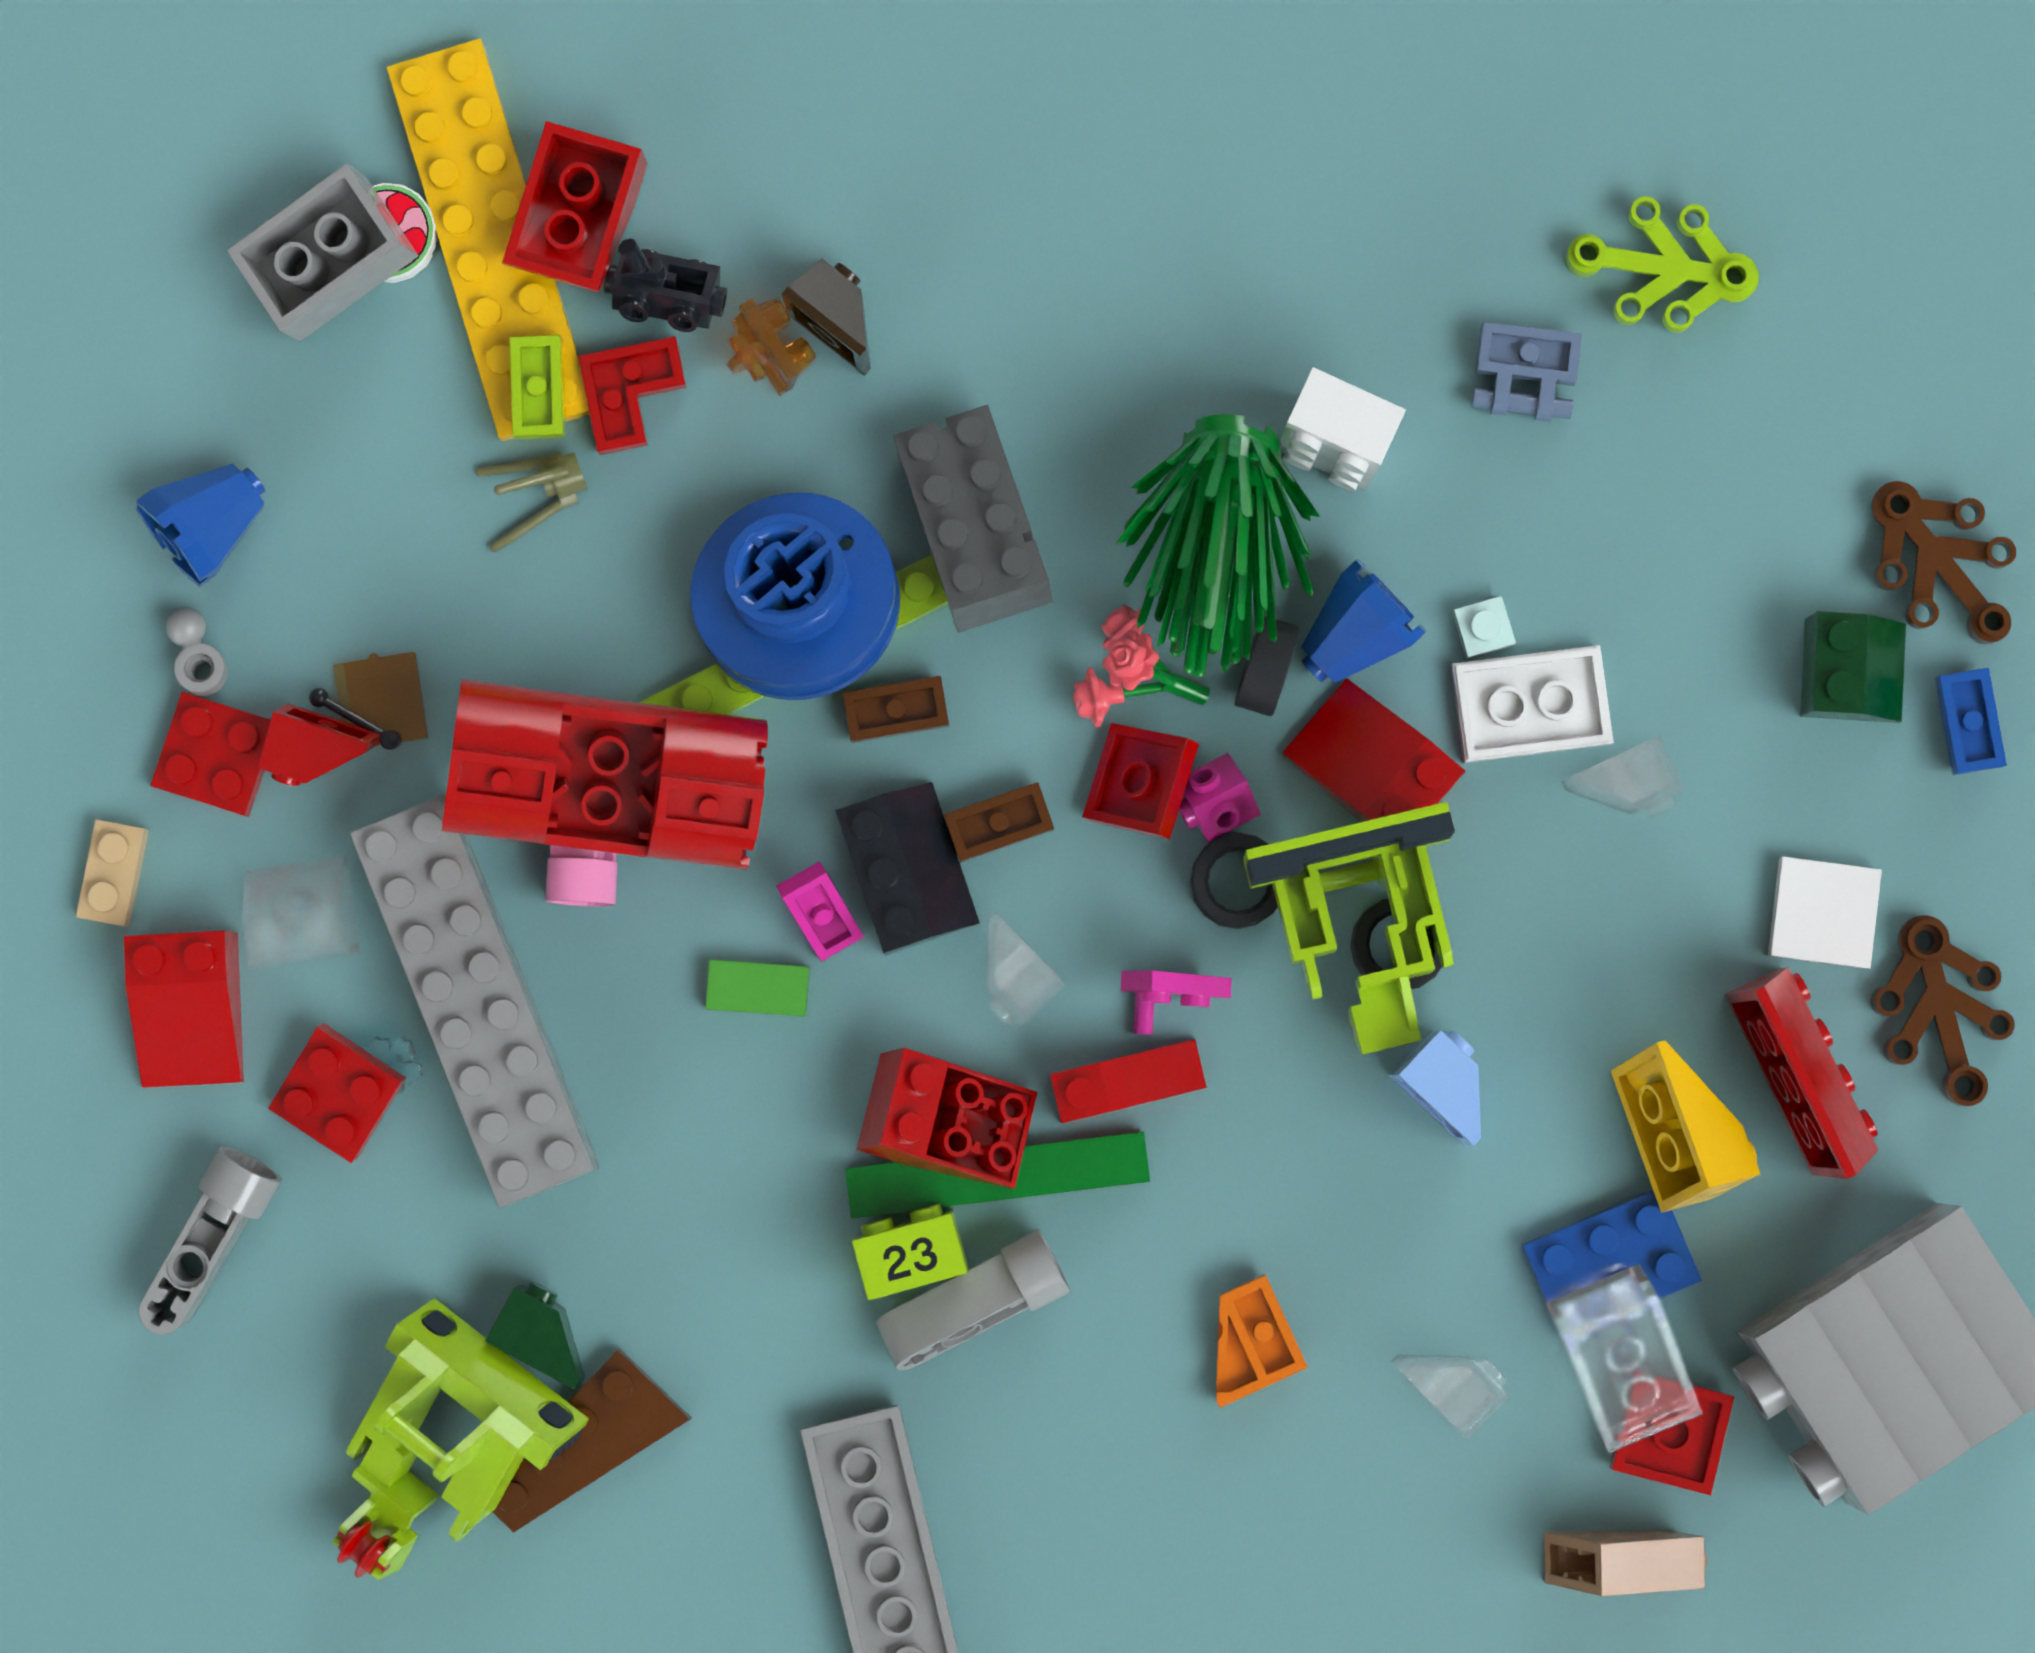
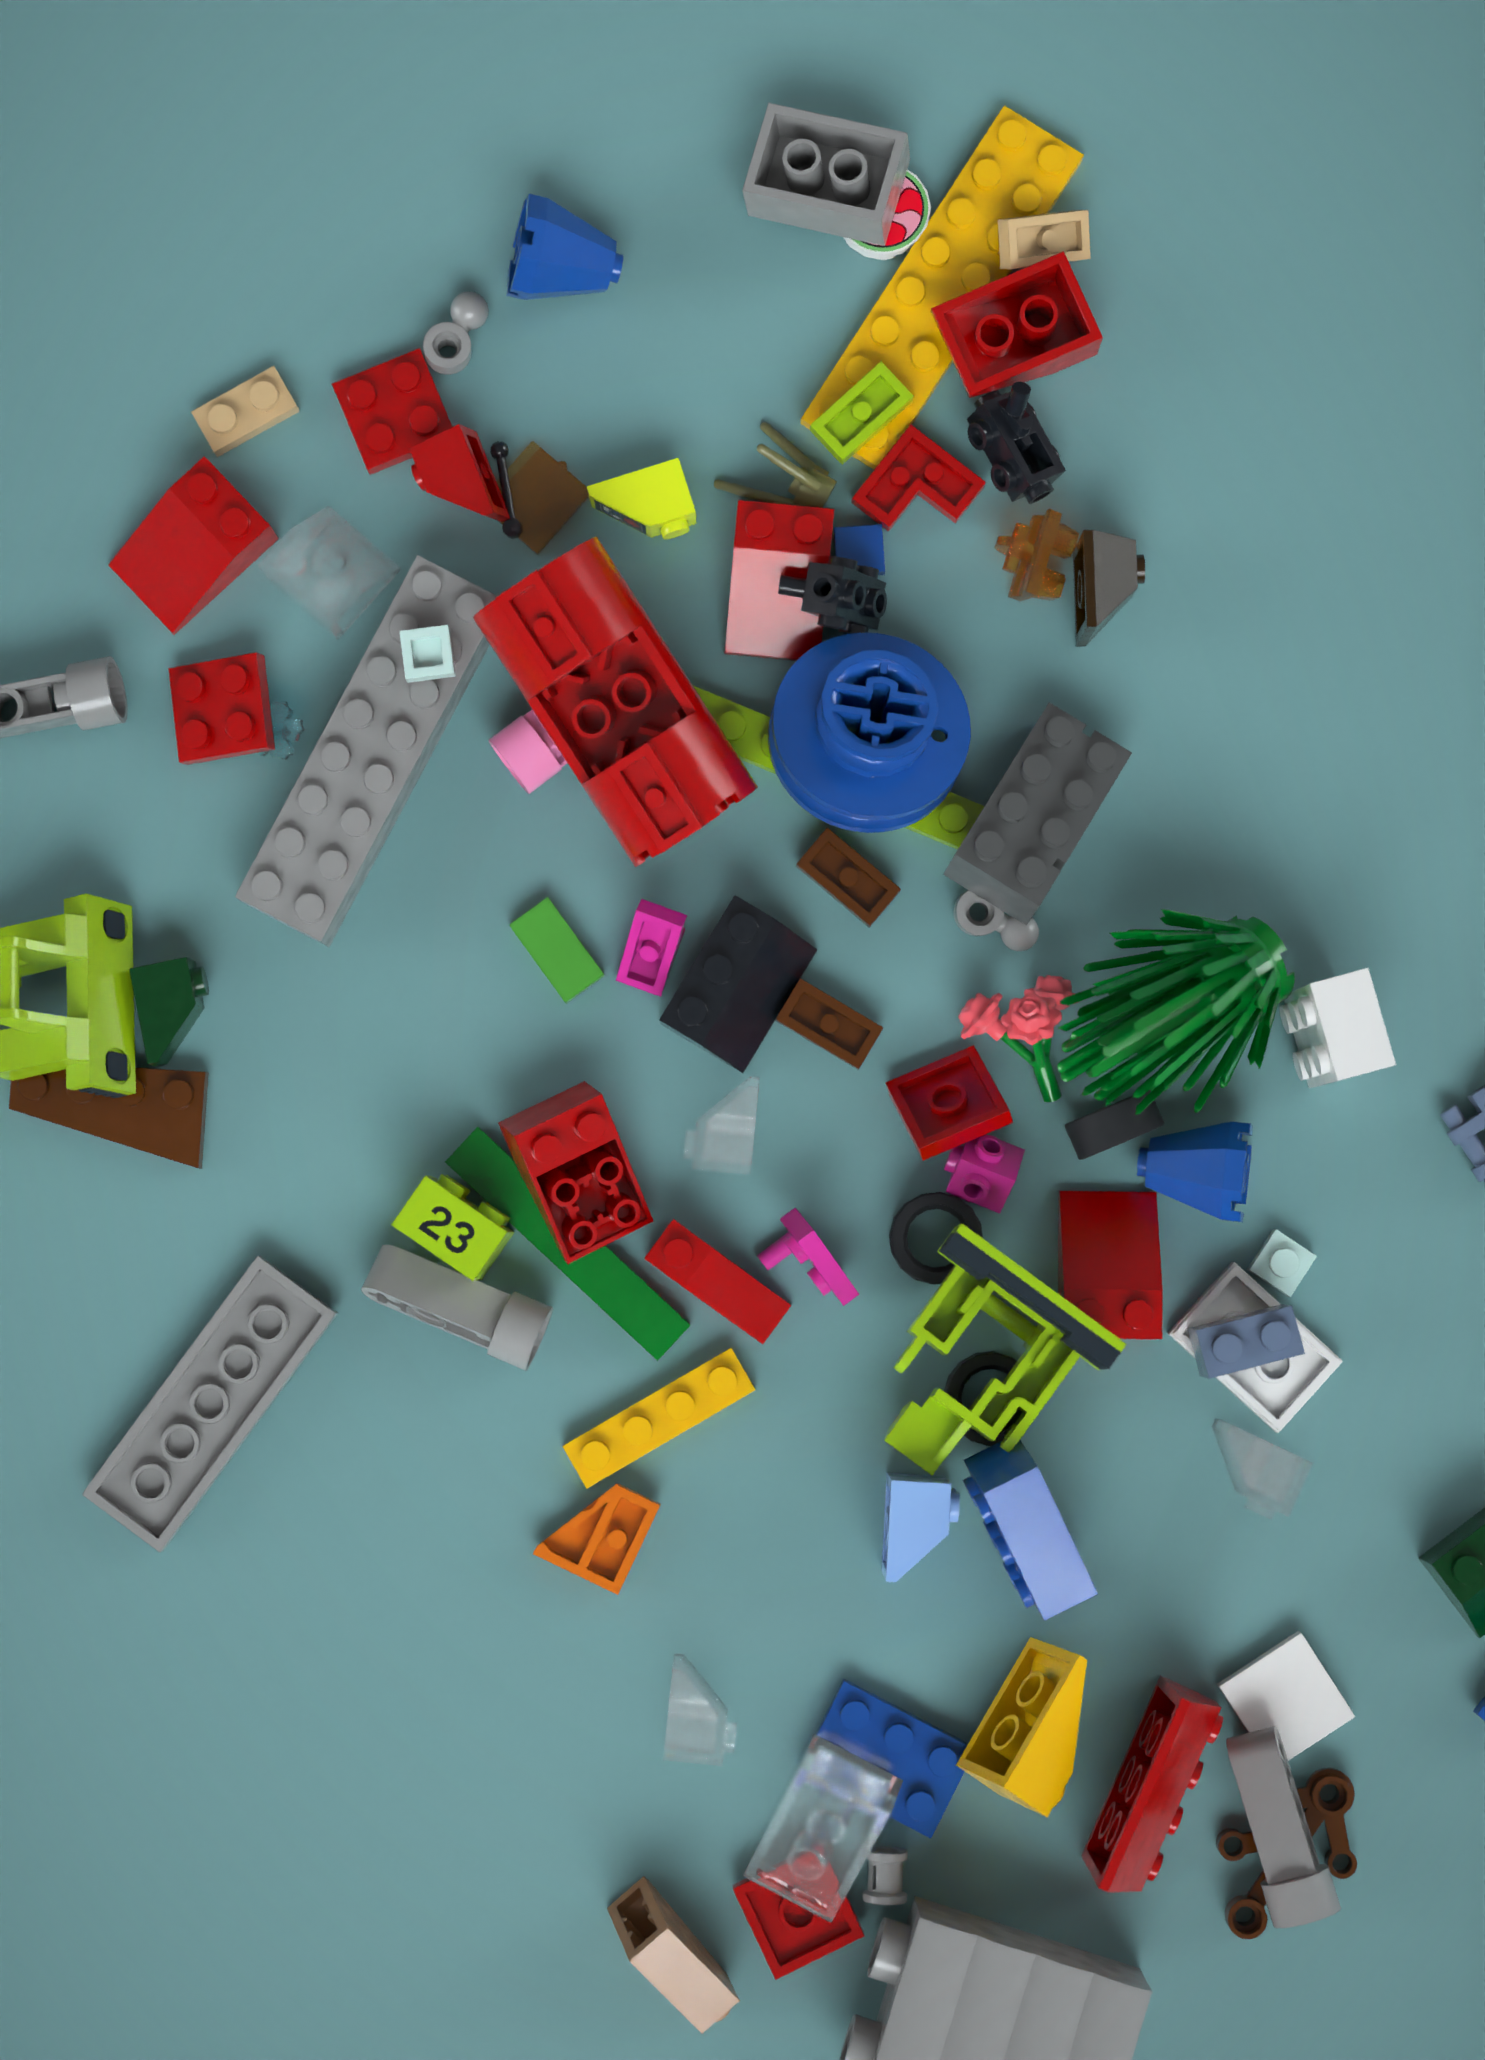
camera: 50 degrees right, 0 degrees up
(437, 891) = (427, 653): none -> light aqua plate
(461, 613) = (648, 500): none -> neon yellow slope
(519, 126) = (1040, 236): none -> tan plate
(613, 564) = (769, 544): none -> slope
(644, 481) = (861, 544): none -> blue tile
(668, 526) = (840, 594): none -> black brick
(1049, 617) = (1013, 932): none -> light grey plate
(1195, 1218) = (659, 1417): none -> yellow plate
(1521, 707) = (1246, 1341): none -> sand blue brick
(1525, 1001) = (1027, 1529): none -> brick
(1702, 1341) = (885, 1876): none -> light grey bush
(1971, 1023) = (1296, 1884): none -> light grey beam

